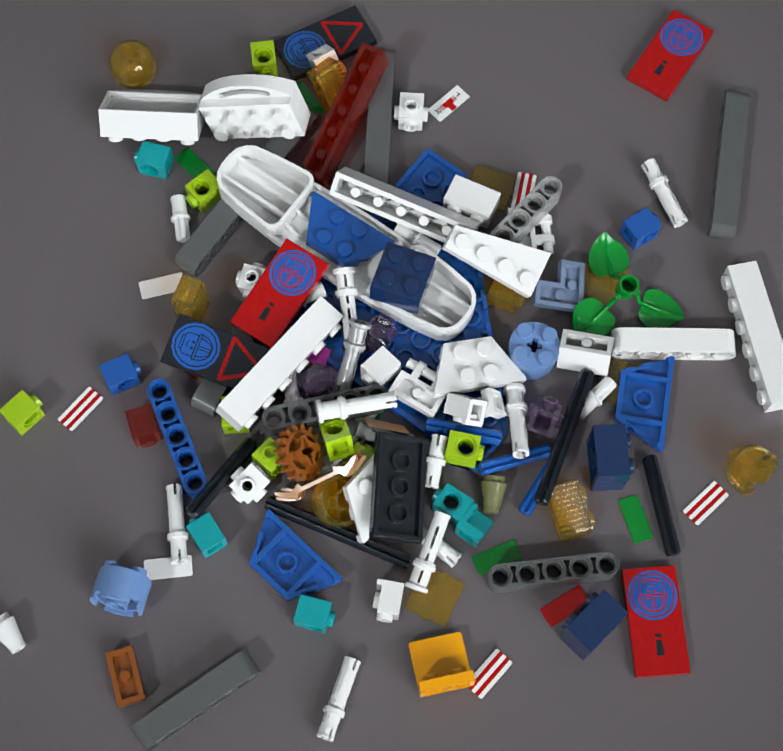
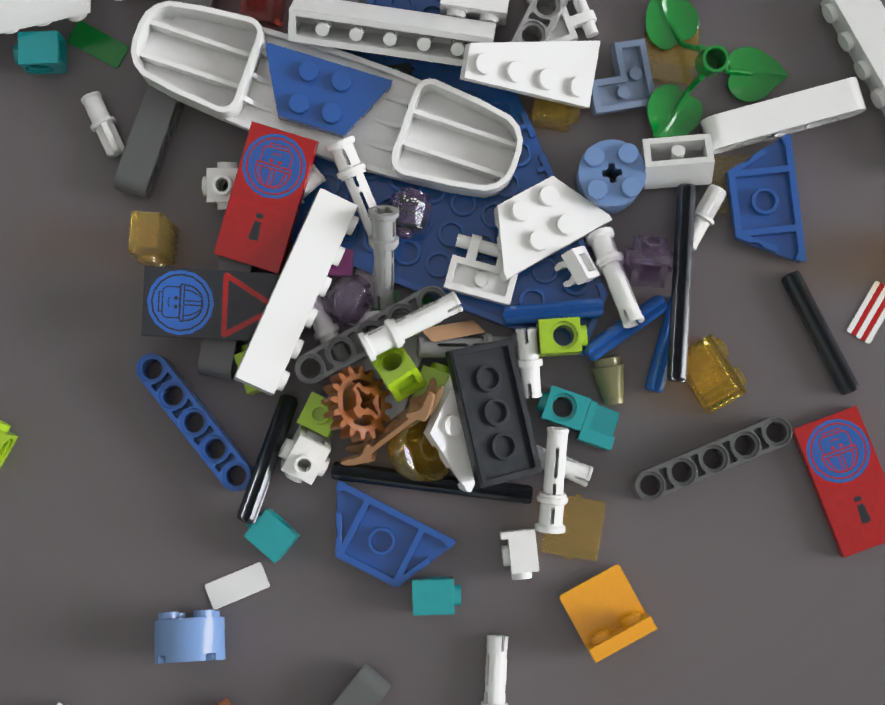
camera: 10 degrees left, 15 degrees up
(80, 408) = (60, 415): sticker -> none
(121, 374) = (96, 358): blue brick -> none
(143, 426) = (147, 419): clear red brick -> none
(159, 286) = (107, 222): white sticker -> none
(177, 535) = (230, 531): white pin -> none
(204, 182) = (117, 65): lime brick -> none
(380, 368) = (424, 261): white brick -> none
(402, 277) = (420, 134): dark blue brick -> none
(417, 238) = (422, 69): white axle -> none
(465, 409) = (549, 285): white brick -> none
(490, 673) = (666, 600): sticker -> none
(503, 553) = (635, 455): green sticker -> none
(564, 606) = (734, 492): red sticker -> none
(595, 622) = (780, 513): dark blue brick -> none
(609, 457) = (744, 293): dark blue brick -> none
(635, 519) = (791, 357): green sticker -> none

